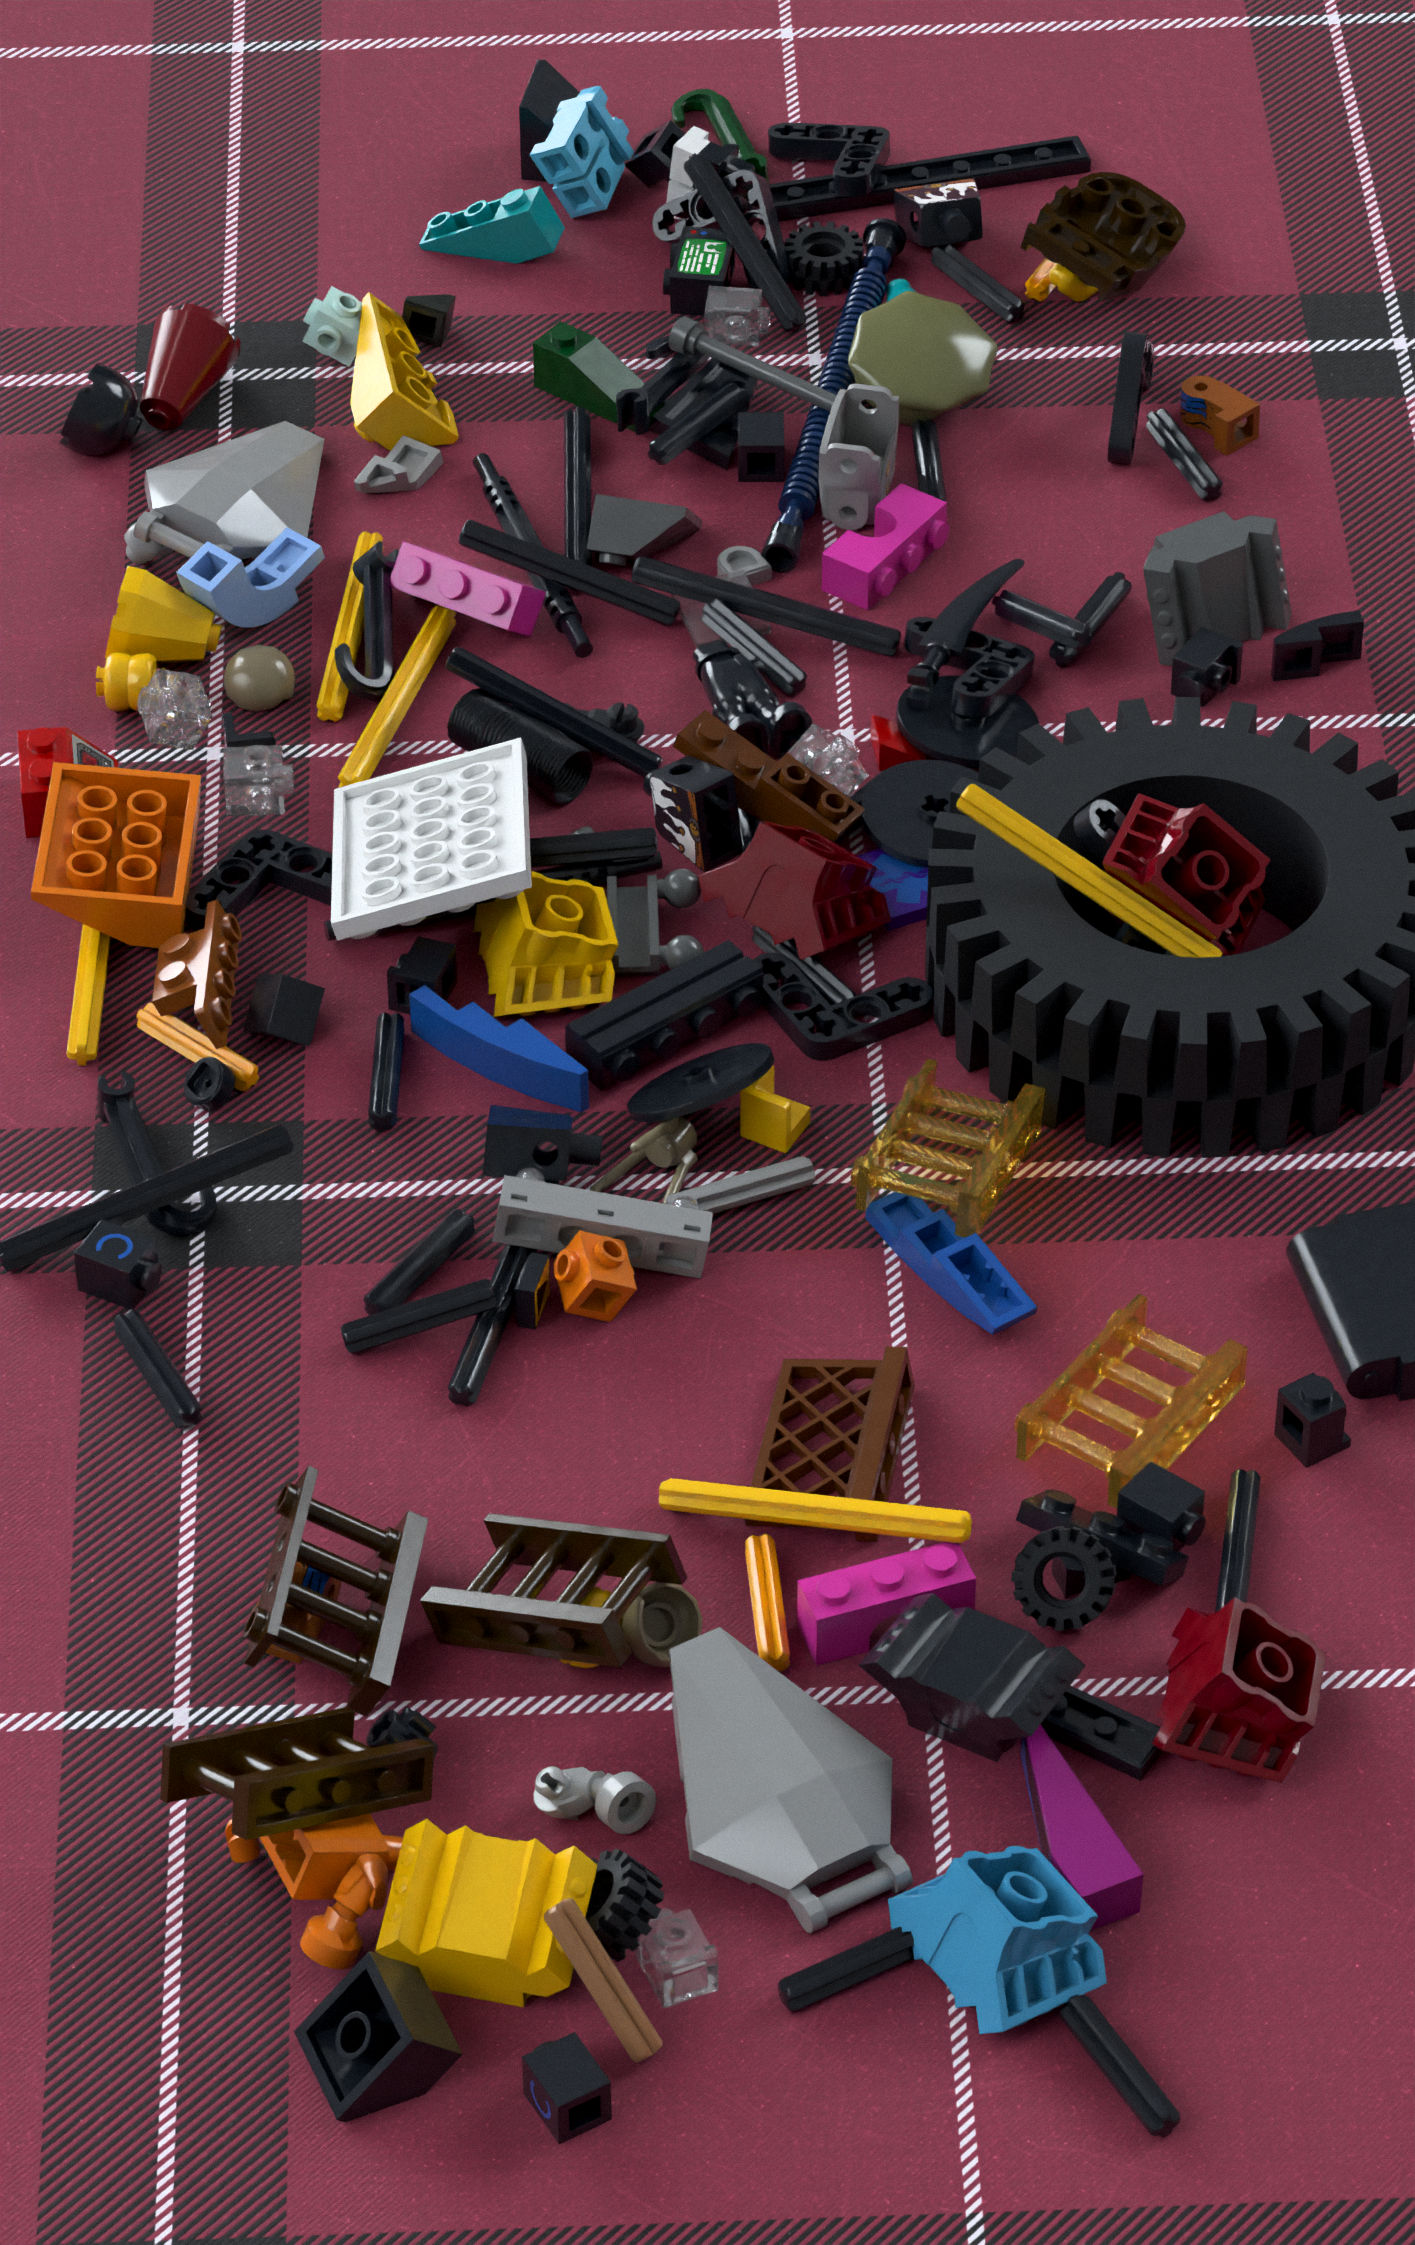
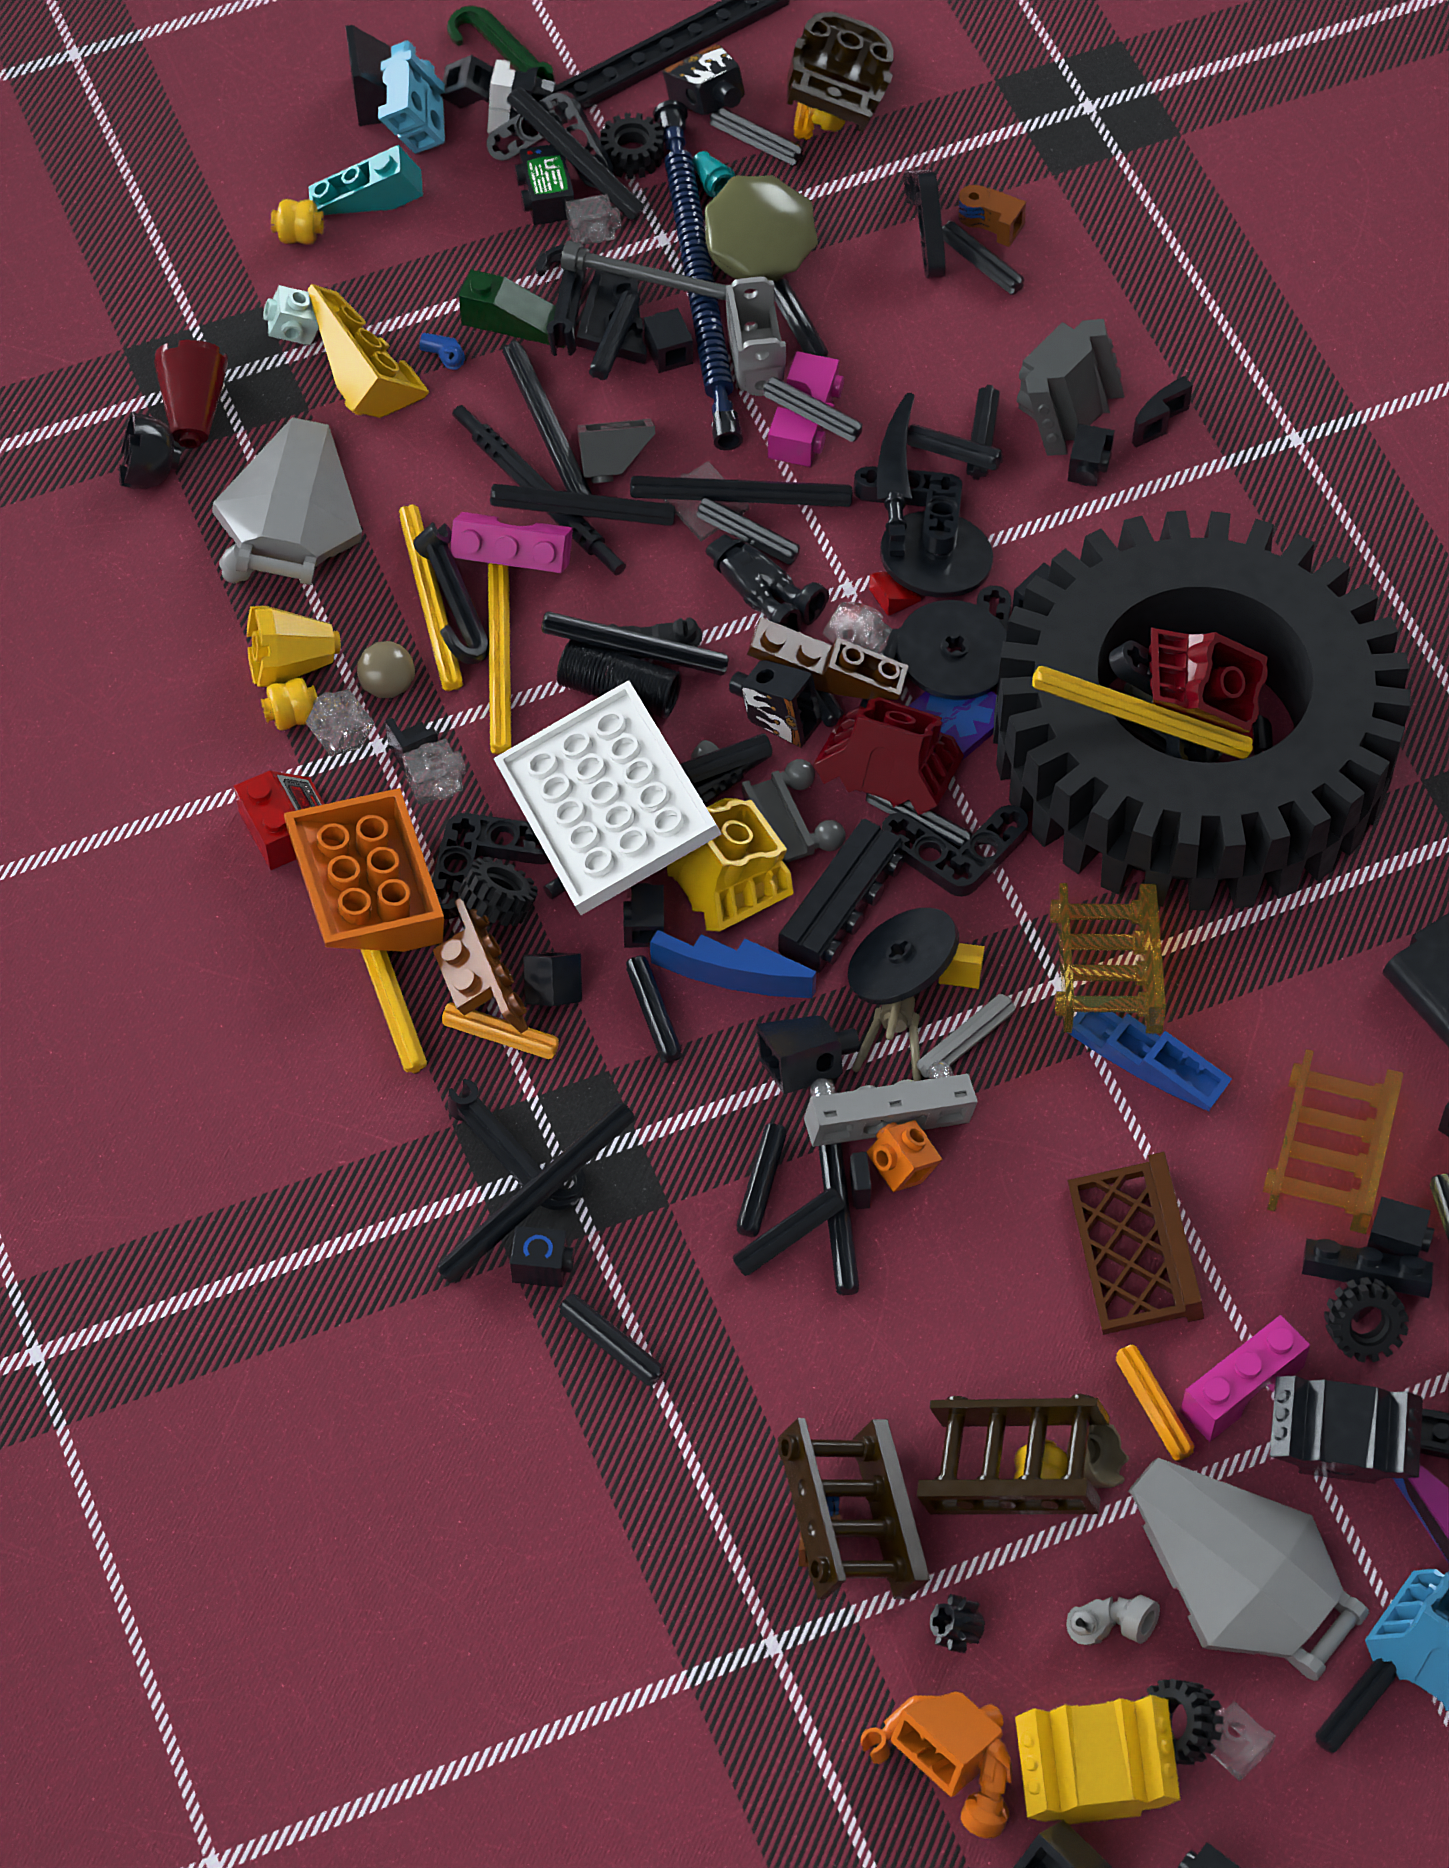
camera: 20 degrees left, 15 degrees up
(209, 1084) = (527, 1064): black tile -> none
(254, 592) = (348, 586): light blue arch -> none
(263, 906) = (498, 891): none -> black tyre
(297, 1772) = (937, 1719): dark brown fence -> none
(394, 243) = (297, 221): none -> yellow piece
(403, 469) = (400, 434): light grey slope -> none
(429, 317) = (358, 286): pearl dark grey slope -> none
(501, 400) = (446, 348): none -> blue arm
(603, 1980) = (1206, 1789): medium nougat axle -> none
(746, 559) = (699, 451): light grey tile -> none
(815, 1510) = (1163, 1318): yellow axle -> none
(858, 151) = (565, 36): black beam -> none
(886, 537) = (813, 409): none -> axle

